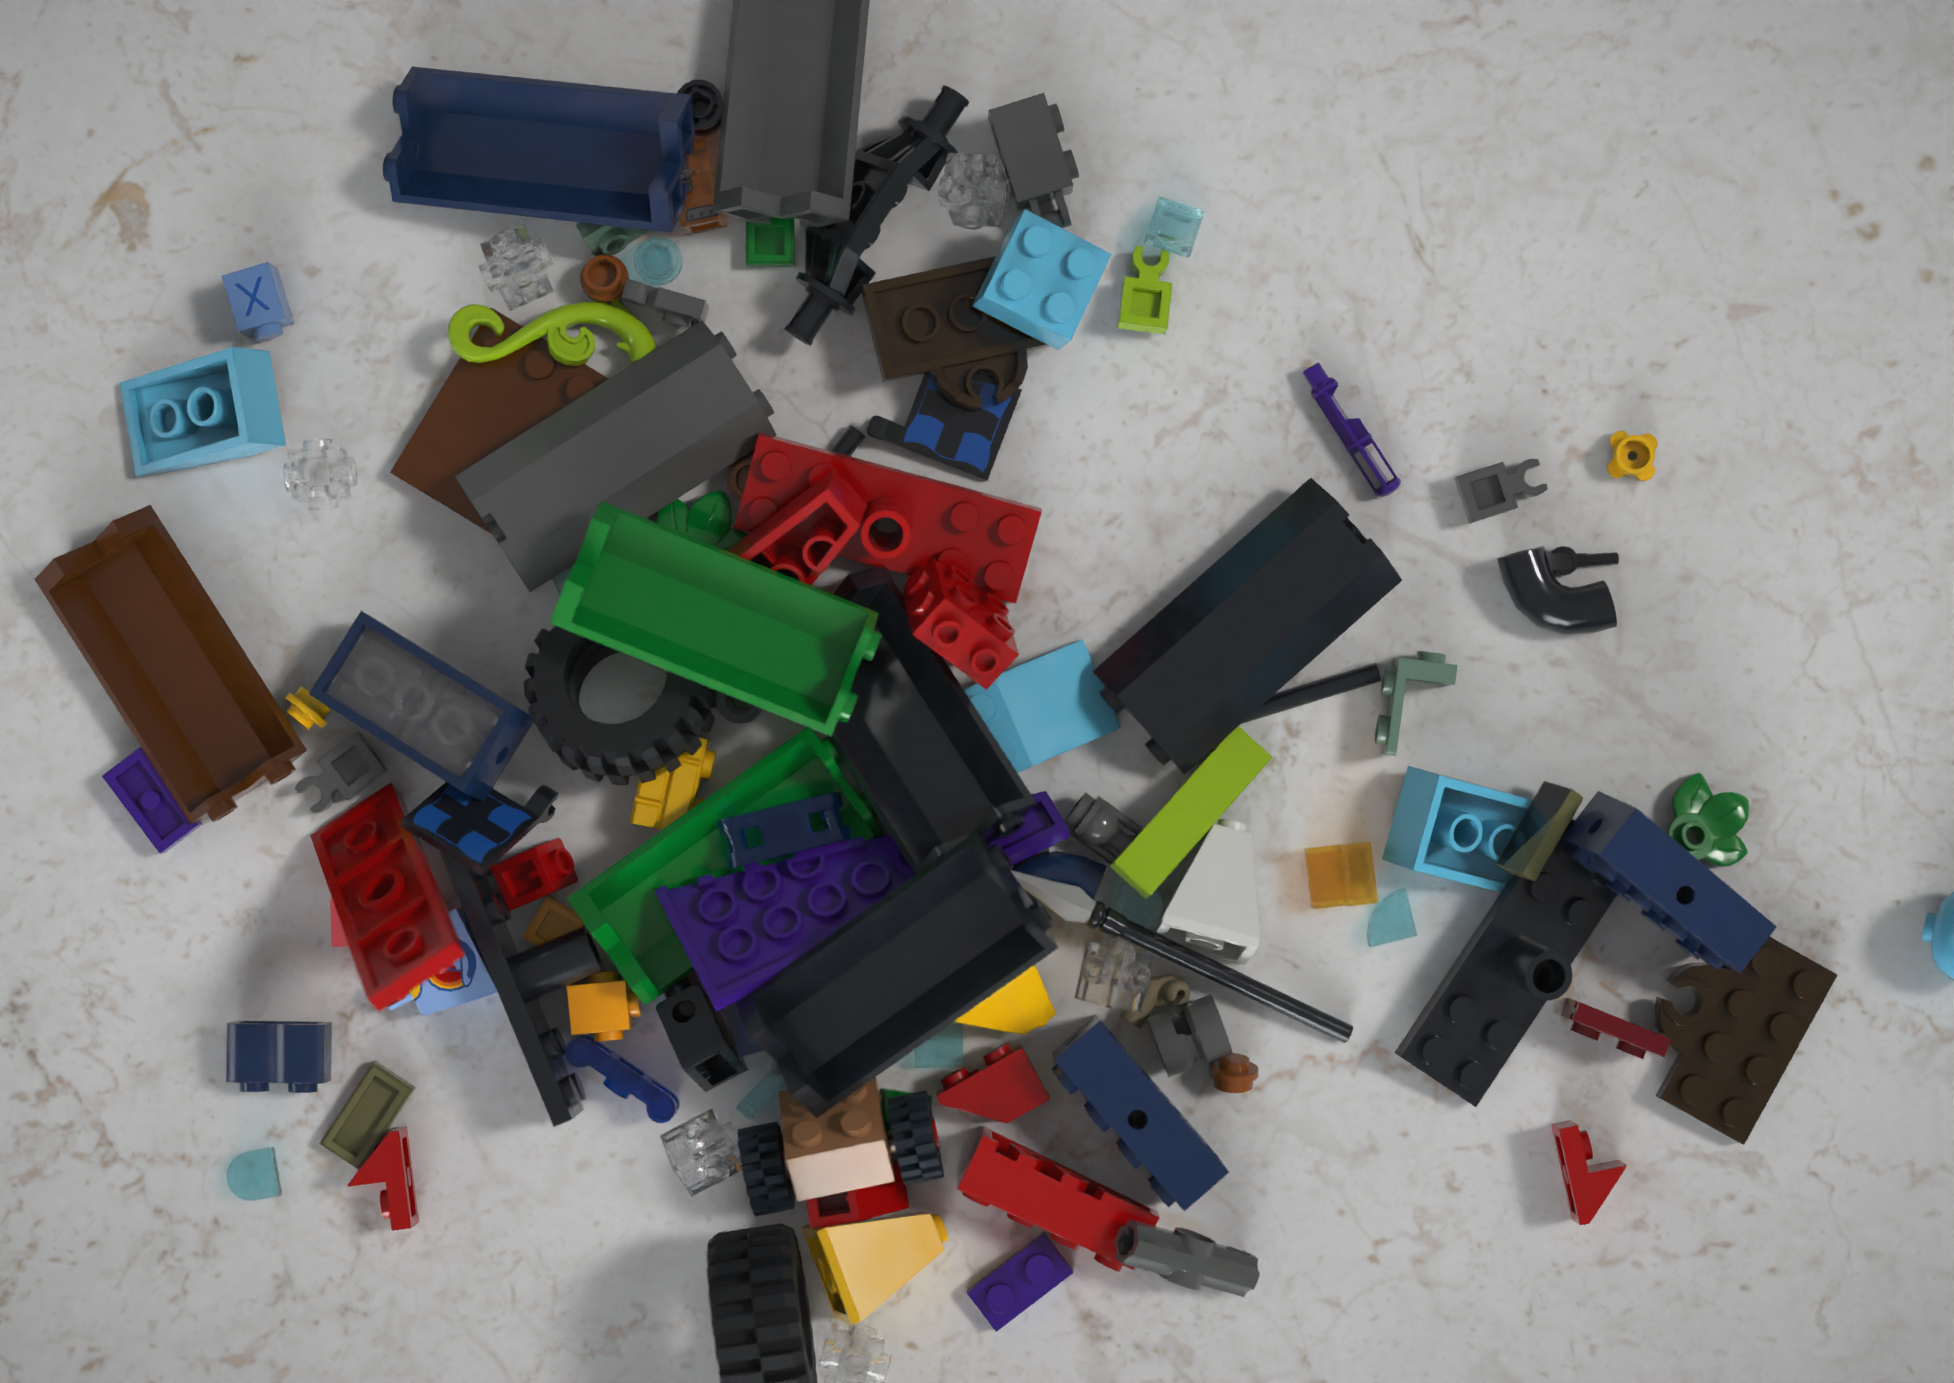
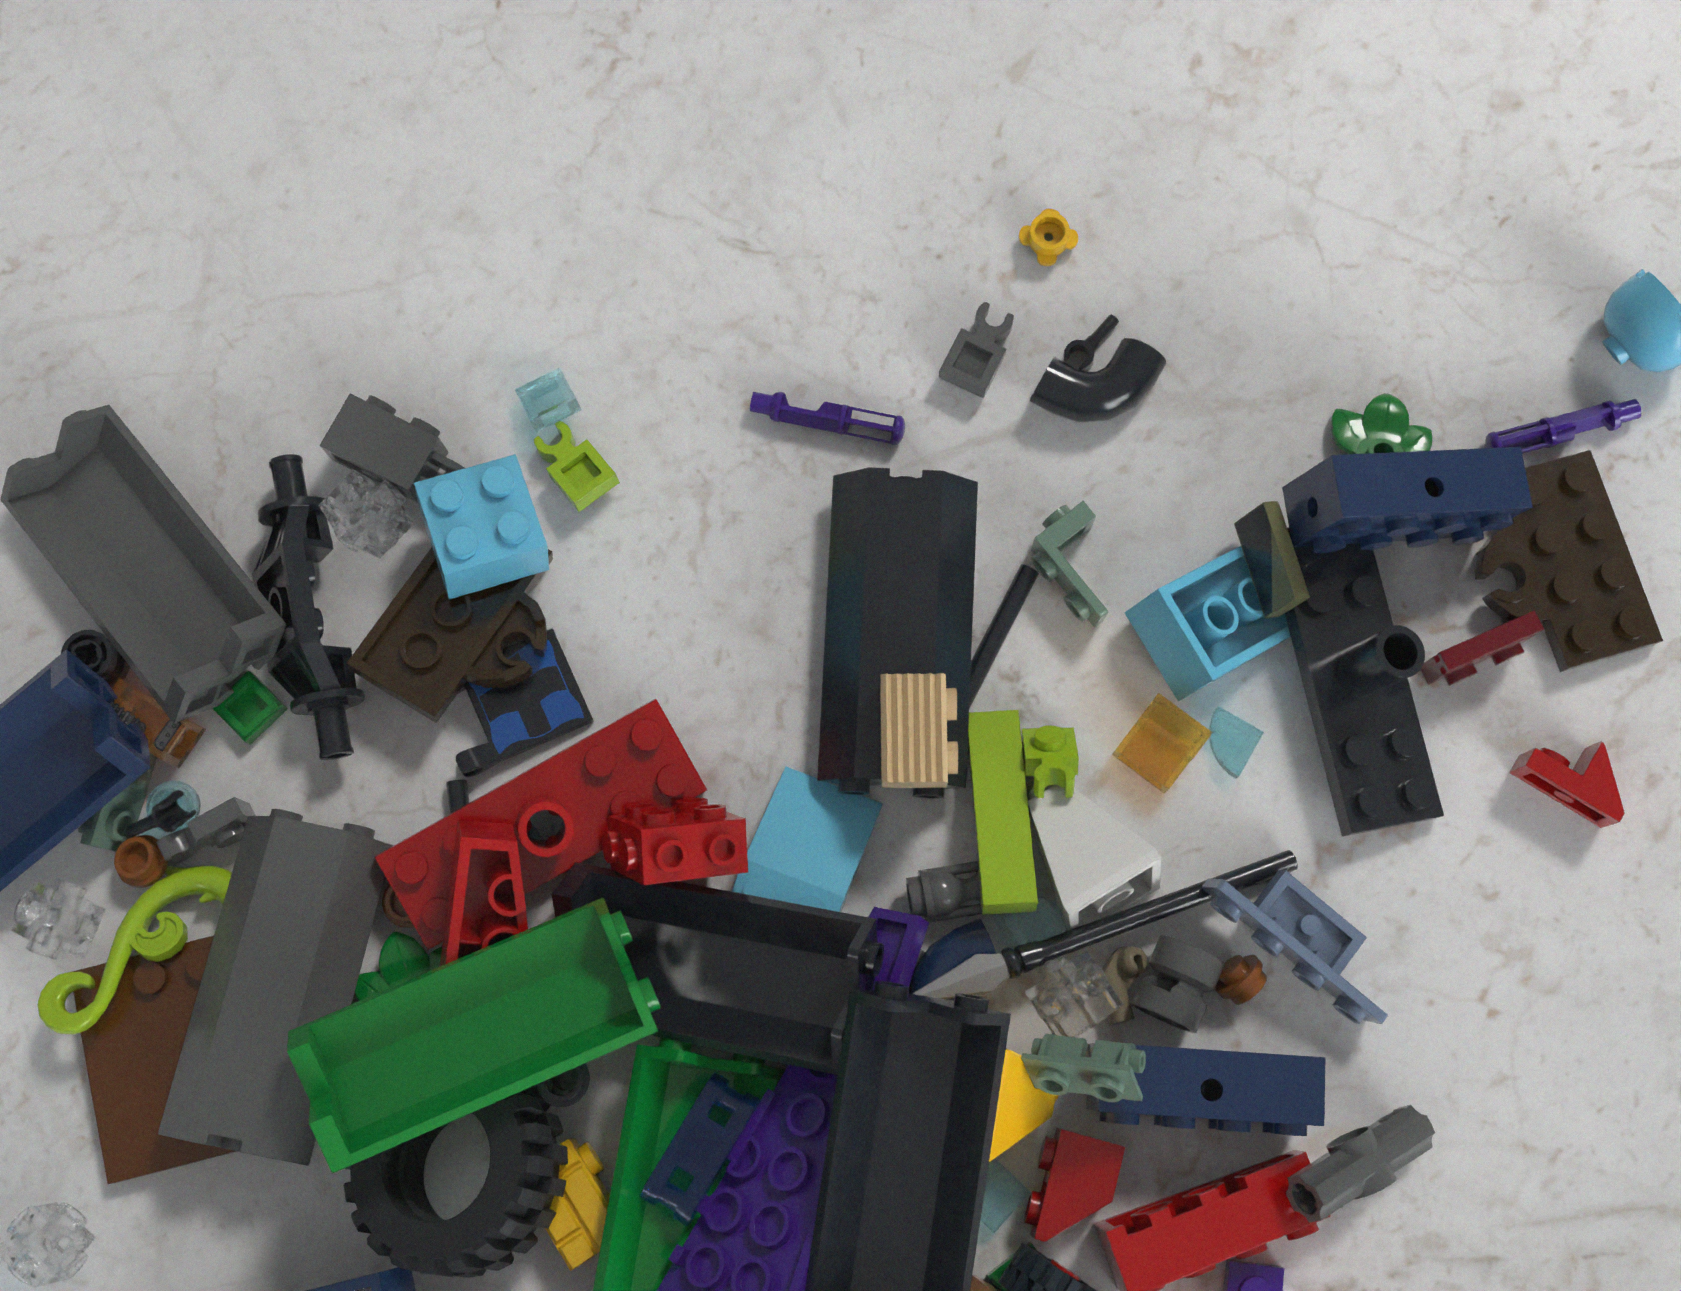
camera: 45 degrees left, 10 degrees down
(650, 267) = (165, 814): none -> black hand
(1058, 1010) = (1060, 1067): none -> sand green hinge
(1185, 708) = (916, 730): none -> tan brick
(1259, 811) = (1050, 757): none -> lime plate
(1305, 1084) = (1306, 932): none -> sand blue bracket
(1835, 940) = (1565, 426): none -> dark purple piece

